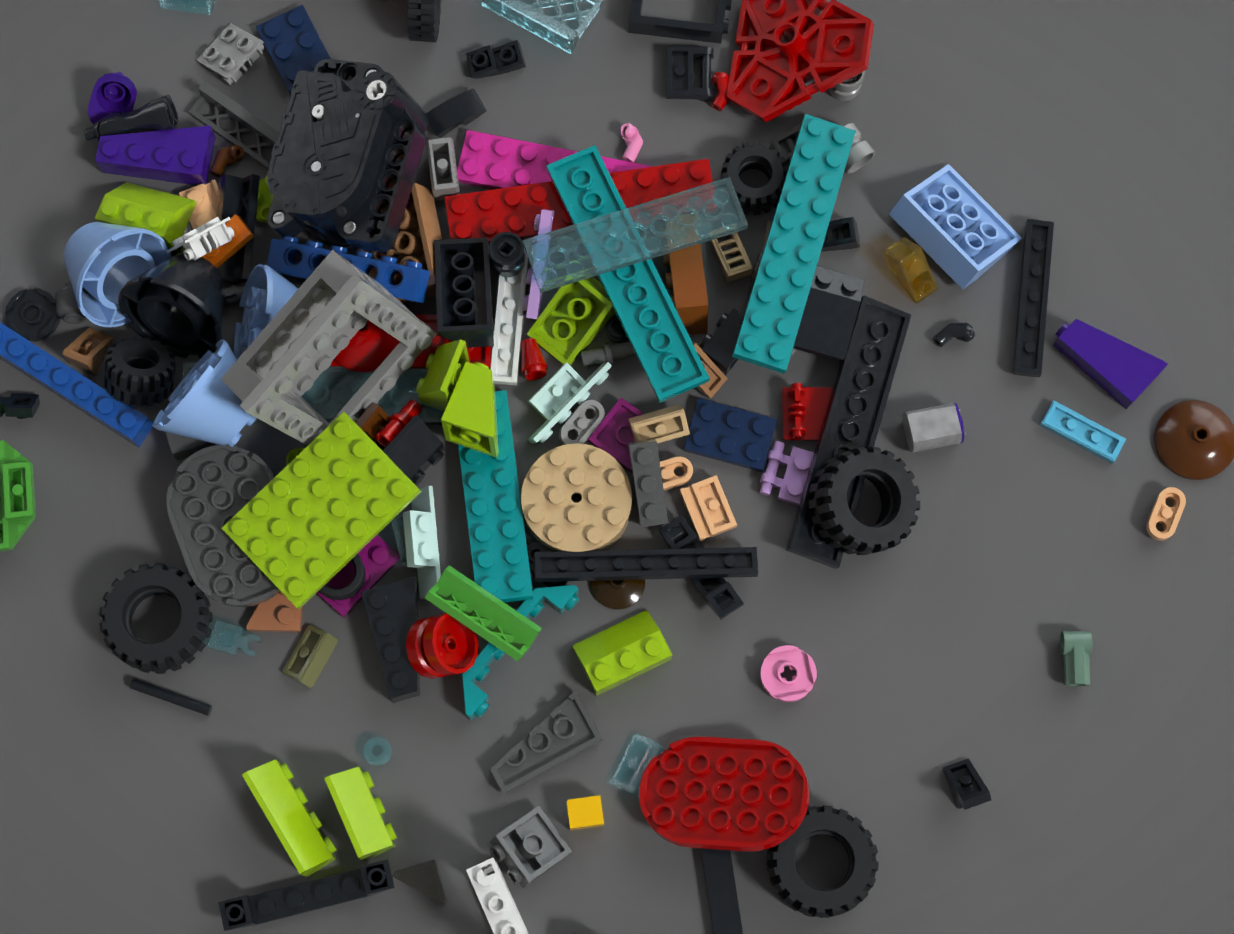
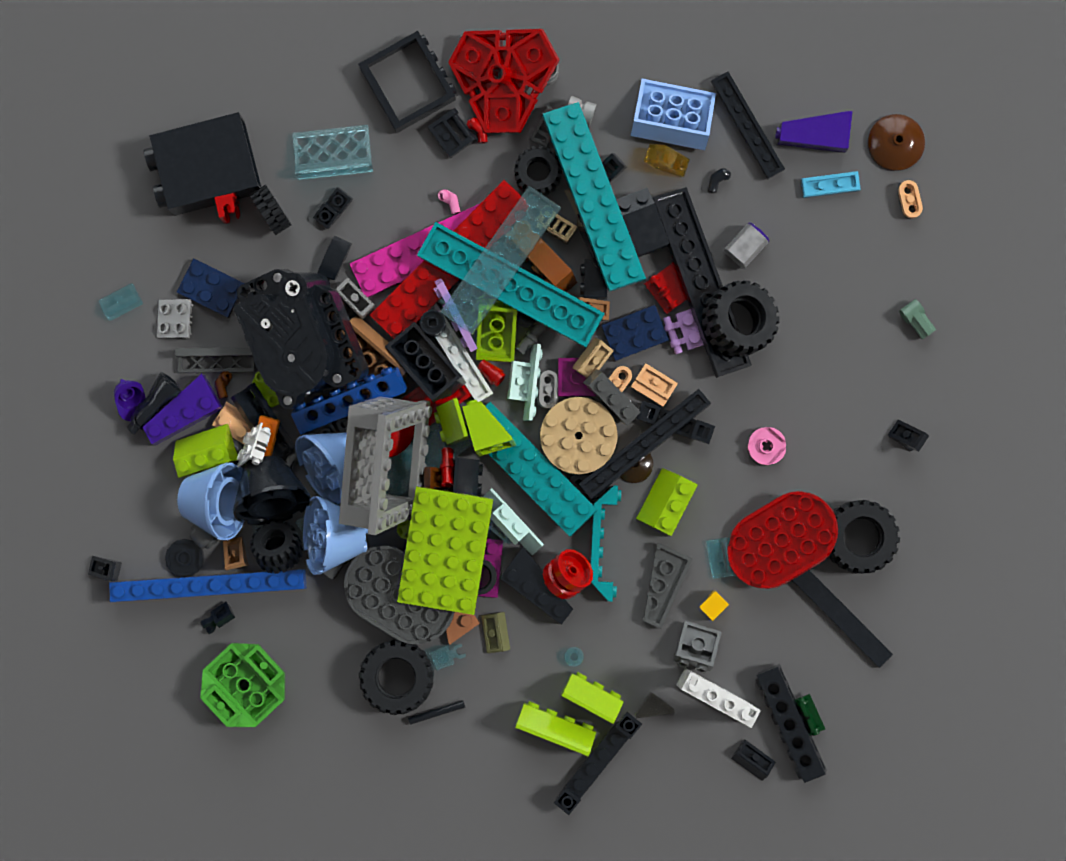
camera: 35 degrees left, 10 degrees up
(484, 612) = (578, 538): bright green fence -> none

